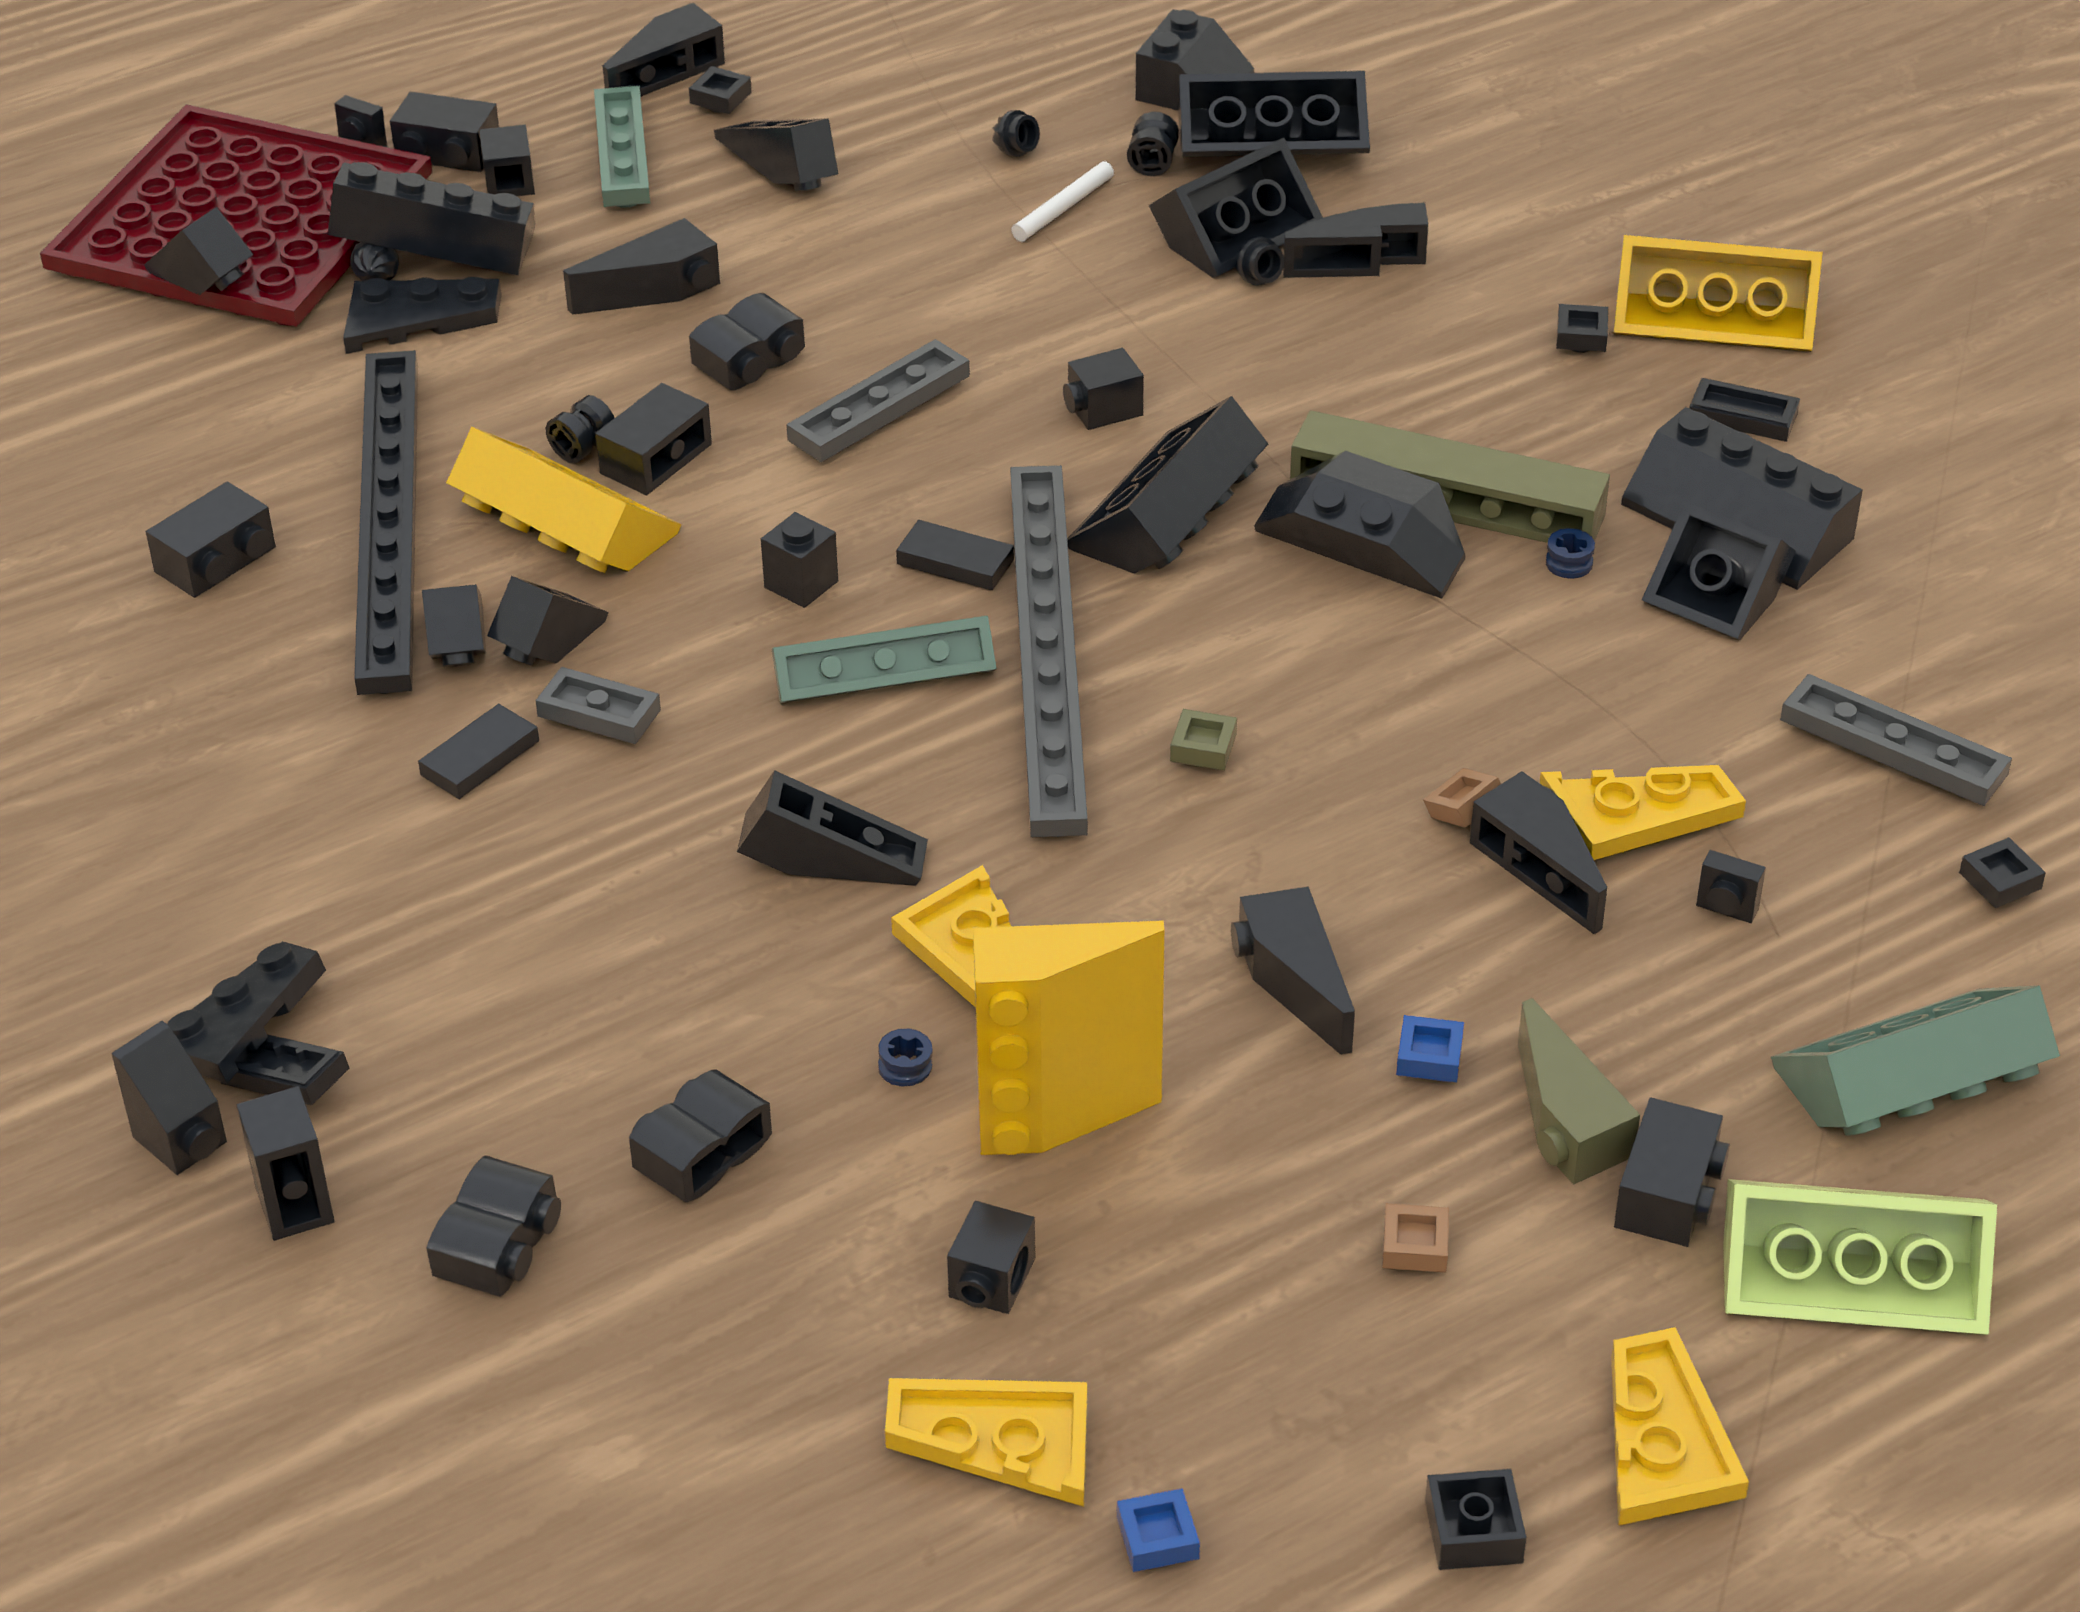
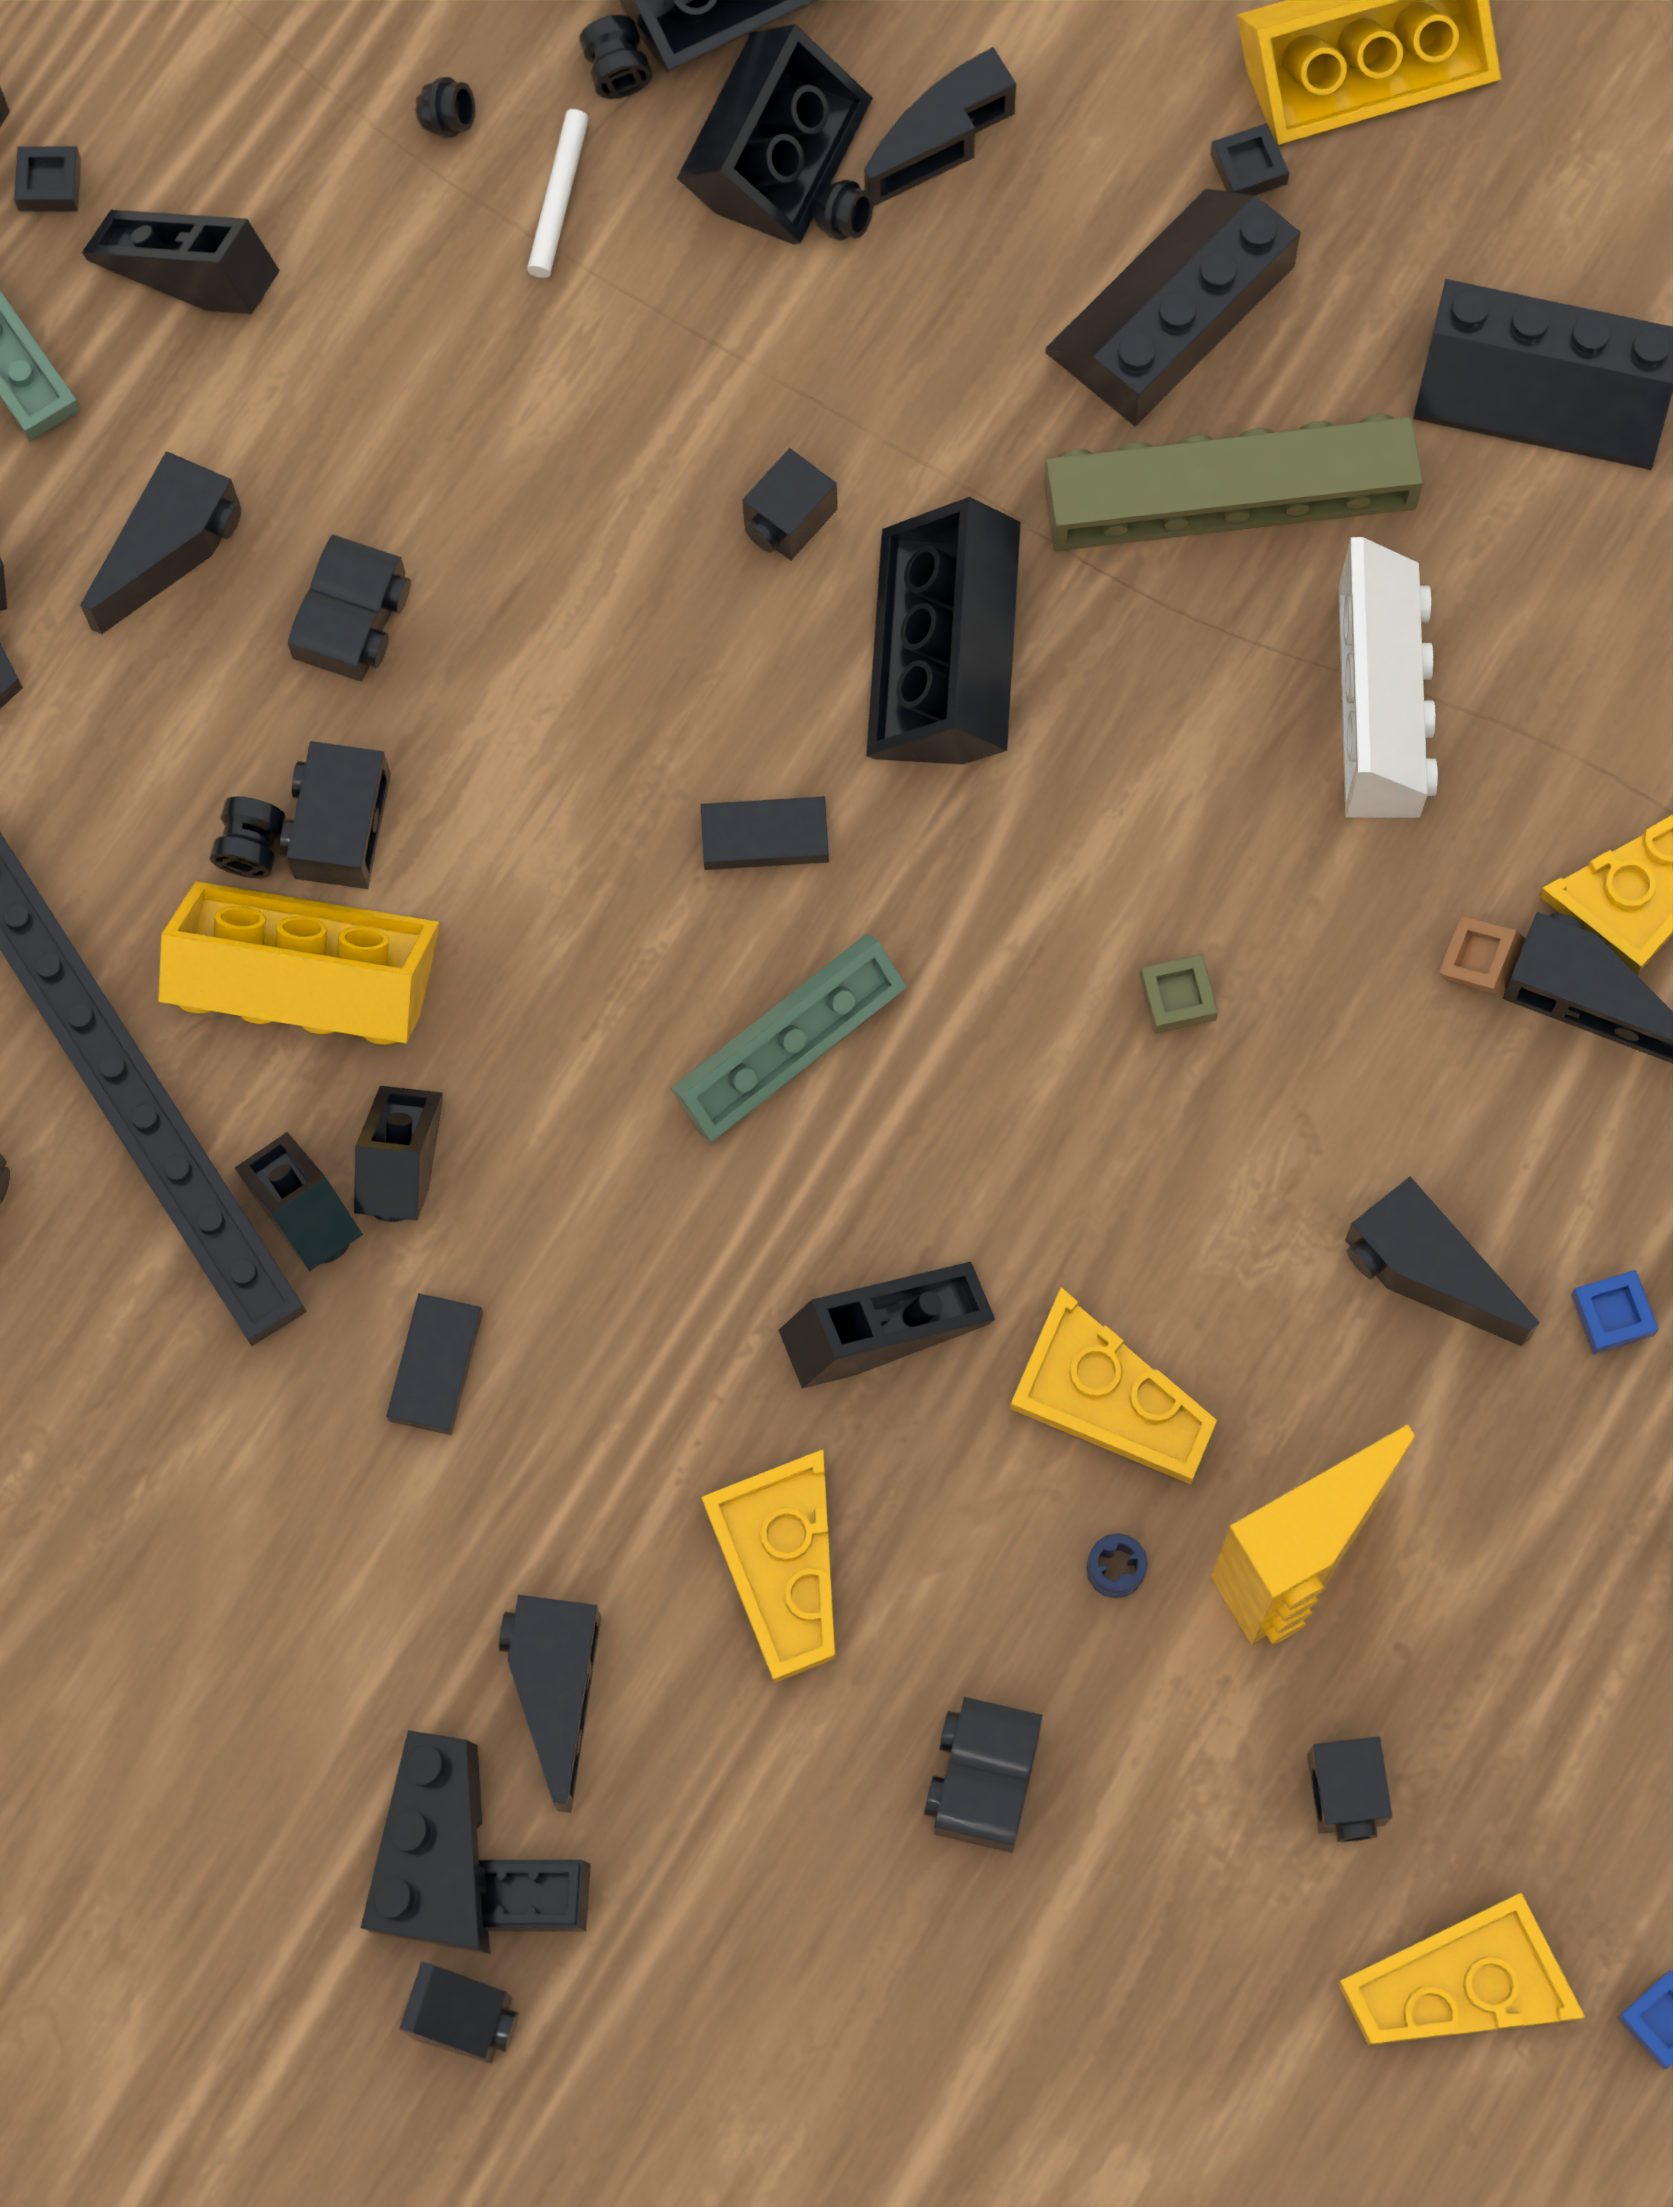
camera: 25 degrees left, 30 degrees up
(286, 1163) = (624, 2032): black brick -> none
(413, 949) = (552, 1667): none -> black slope
(493, 1226) = (859, 1986): black brick -> none
(598, 705) = (525, 1245): dark grey plate -> none
(642, 948) = (780, 1561): none -> yellow wing
(799, 559) = (616, 934): black brick -> none
(877, 400) = (547, 633): dark grey plate -> none
(1047, 654) = (945, 933): dark grey plate -> none
(1369, 520) = (1181, 588): black wedge -> none
(1480, 381) = (1177, 300): none -> black slope
(1486, 610) = (1383, 684): none -> white slope
(1570, 553) = (1409, 514): dark blue bush -> none
(1718, 572) = (1577, 501): black slope -> none
(1746, 408) = (1475, 213): black tile -> none

